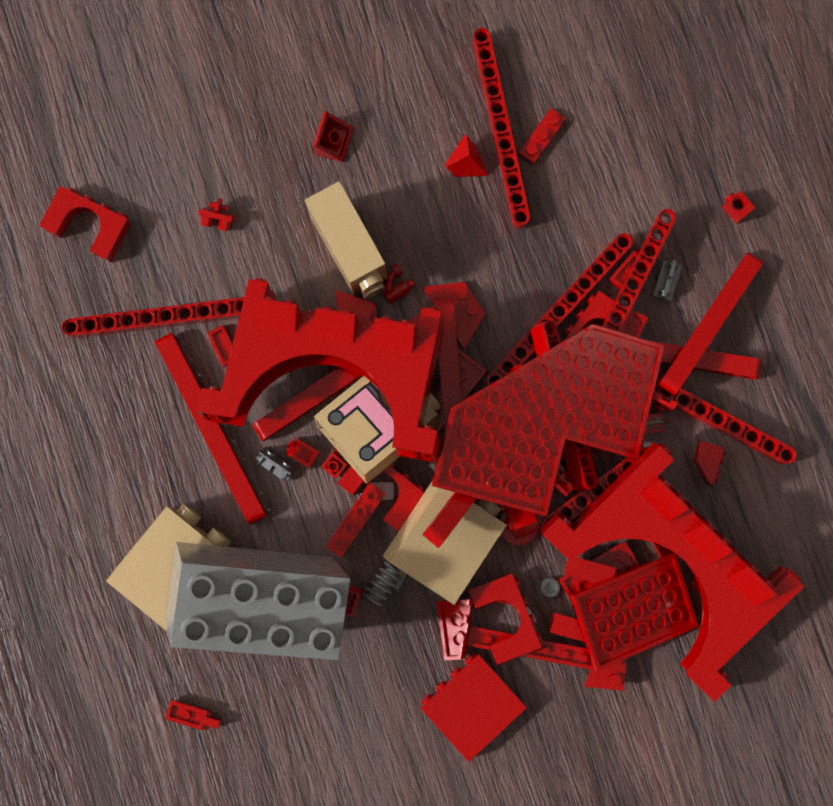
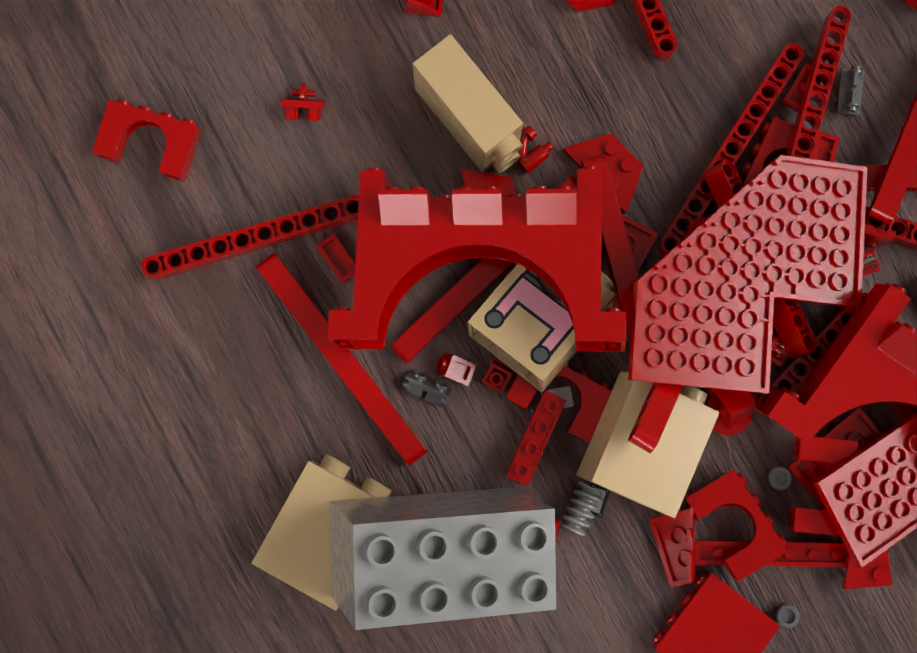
camera: 15 degrees left, 0 degrees up
(535, 700) = (786, 615): none -> flat silver tile

